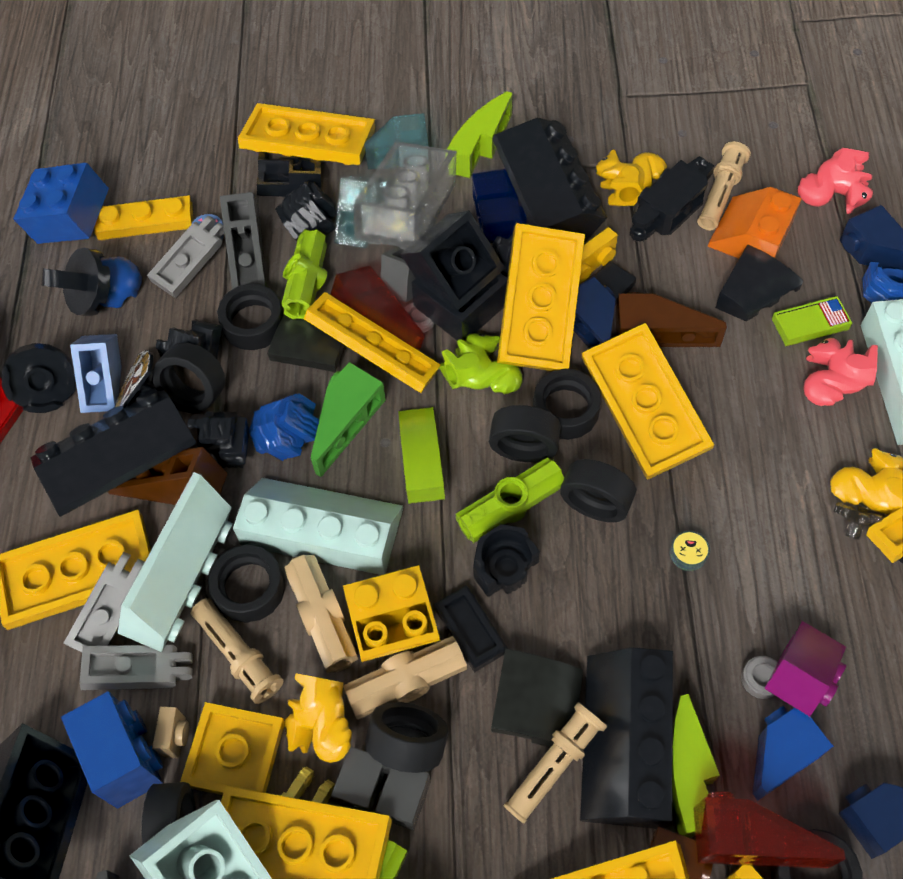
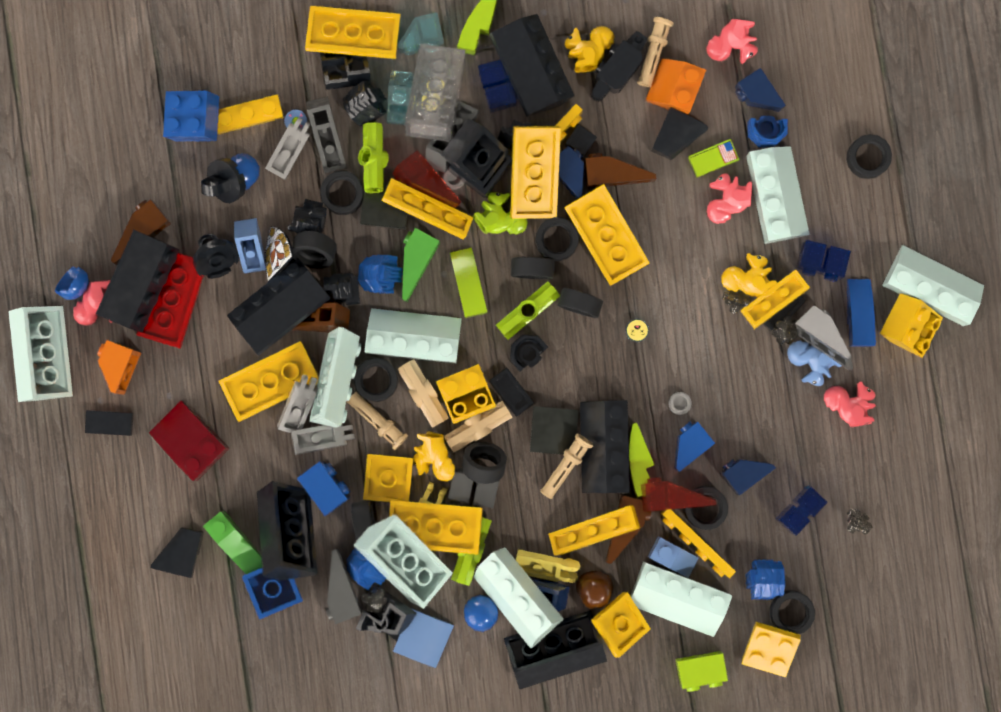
camera: 15 degrees left, 25 degrees up
(170, 732) = (352, 472): tan plate -> none
(808, 670) = (702, 400): magenta brick -> none

